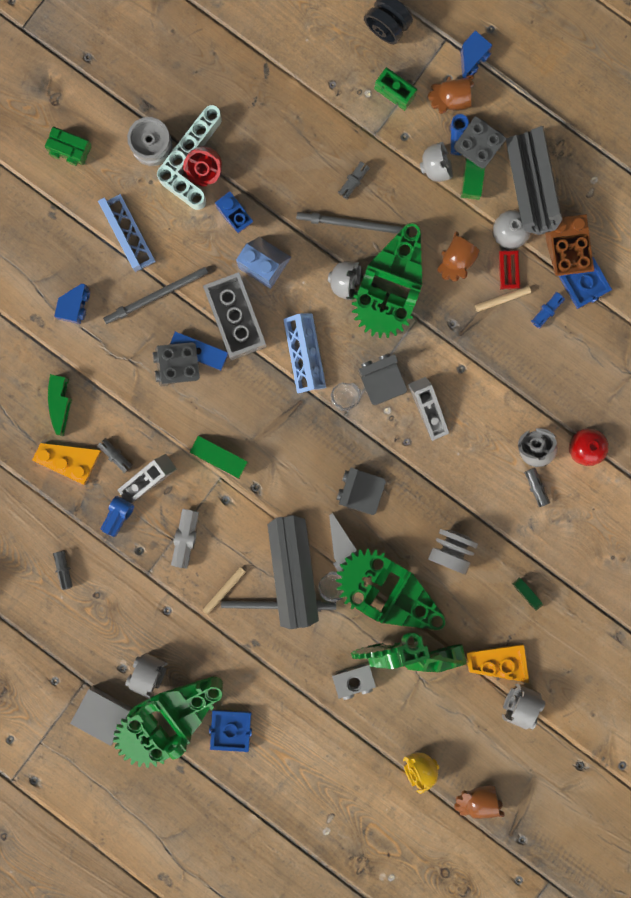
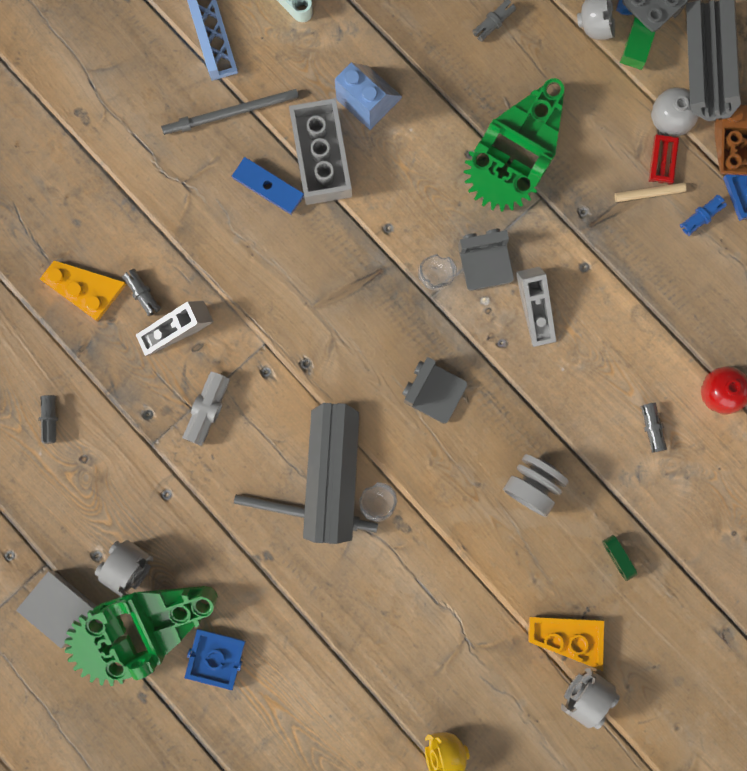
camera: 10 degrees right, 5 degrees down
(58, 404) = (86, 216): green slope -> none
(71, 305) = (127, 102): blue slope -> none
(118, 512) = (133, 360): blue piece -> none
(176, 363) = (238, 194): dark grey bracket -> none
(218, 457) = (268, 317): green slope -> none
(224, 590) = (241, 483): tan bar -> none
(233, 212) = (342, 29): blue slope -> none
(308, 352) = (401, 210): light blue fence -> none
(316, 218) = (441, 56): dark grey bar -> none
(341, 544) = (400, 460): light grey slope -> none
(342, 678) = (393, 616): light grey brick -> none
(345, 278) = (462, 132): light grey cylinder -> none
(401, 603) = (460, 537): green connector -> none
(413, 657) = (463, 607): green connector -> none
(458, 258) = (604, 132): dark orange piece -> none
(538, 447) = (663, 377): light grey cylinder -> none

